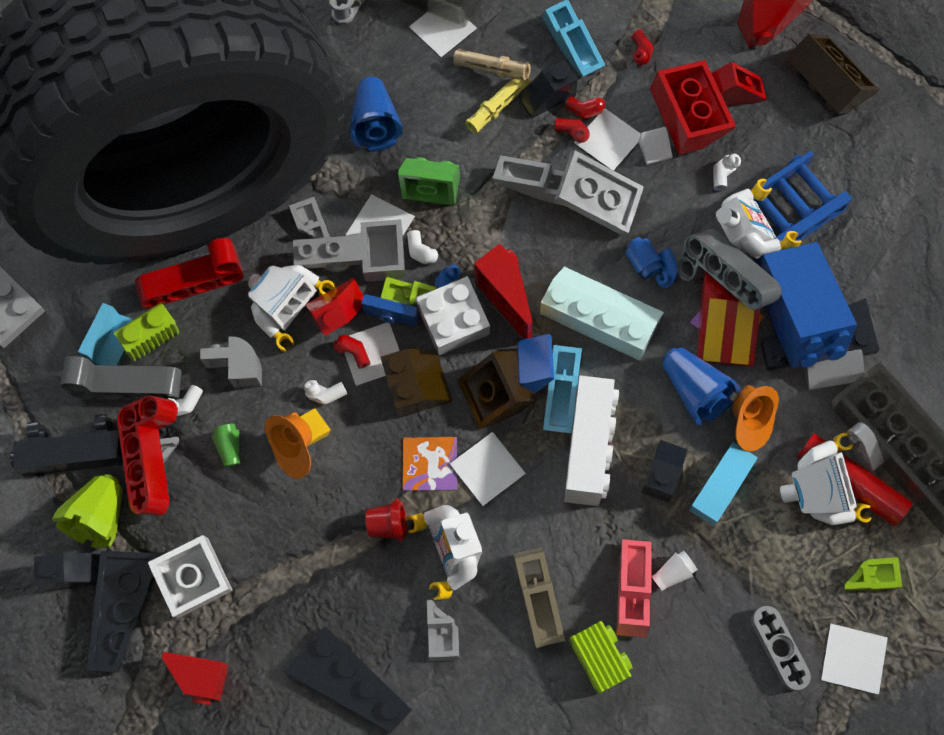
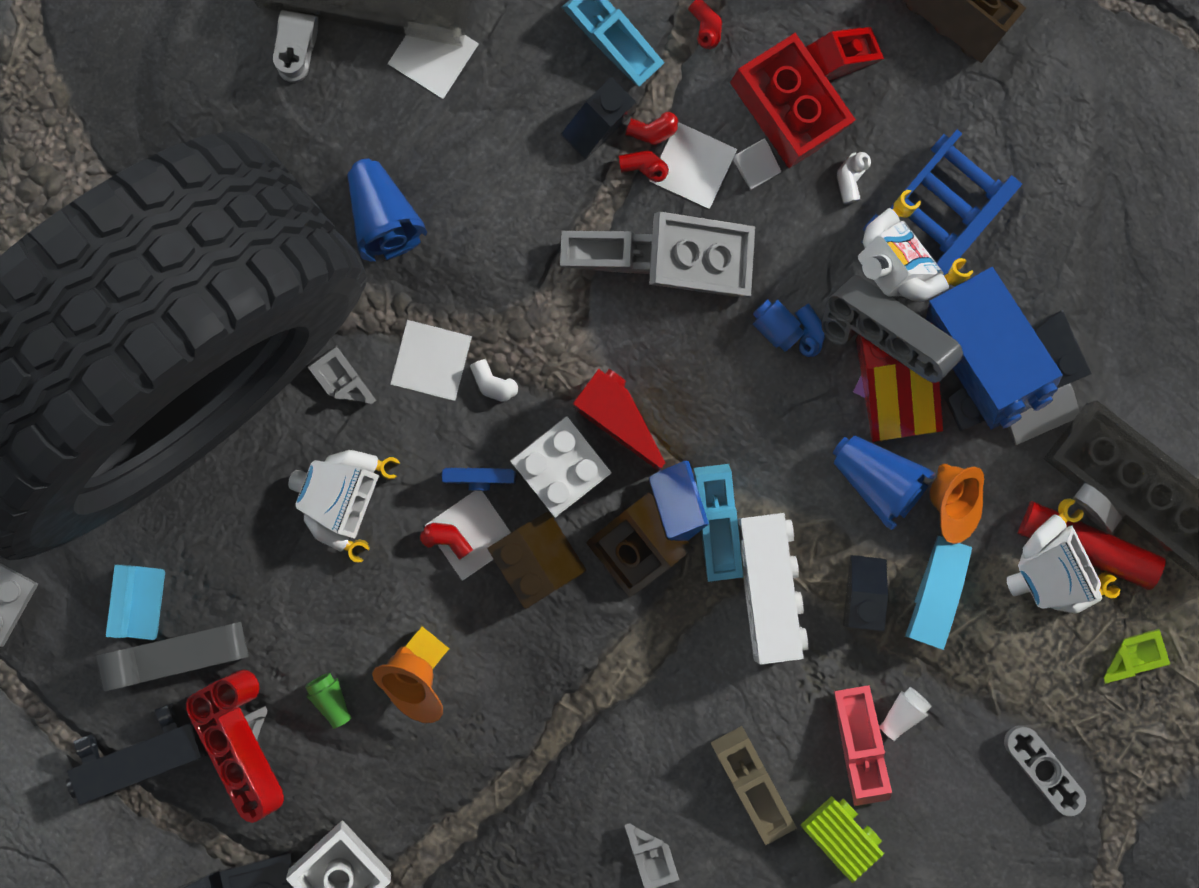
camera: 20 degrees left, 15 degrees up
(92, 512) = (194, 827): lime cone -> none
(146, 332) = (181, 586): lime brick -> none
(189, 401) = (260, 661): white arm -> none
(191, 277) = (242, 478): red beam -> none
(239, 357) = (314, 589): light grey brick -> none
(322, 394) = (426, 605): white arm -> none
(336, 306) = (411, 491): red slope -> none
(376, 248) = (439, 399): light grey plate -> none
(387, 521) = (551, 744): red piece -> none
(404, 292) = (488, 448): lime slope -> none
(428, 463) = (580, 655): sticker -> none
(429, 180) = (479, 286): bright green slope -> none
(447, 275) = (536, 415): blue arm -> none
(455, 543) = (640, 752): white torso -> none
(487, 468) = (652, 644): white sticker -> none
(490, 109) = (533, 158): light yellow pin -> none
(501, 66) = (529, 102): tan pin -> none
(600, 312) = (743, 409): light aqua slope -> none
(854, 658) = (1130, 758): white sticker -> none

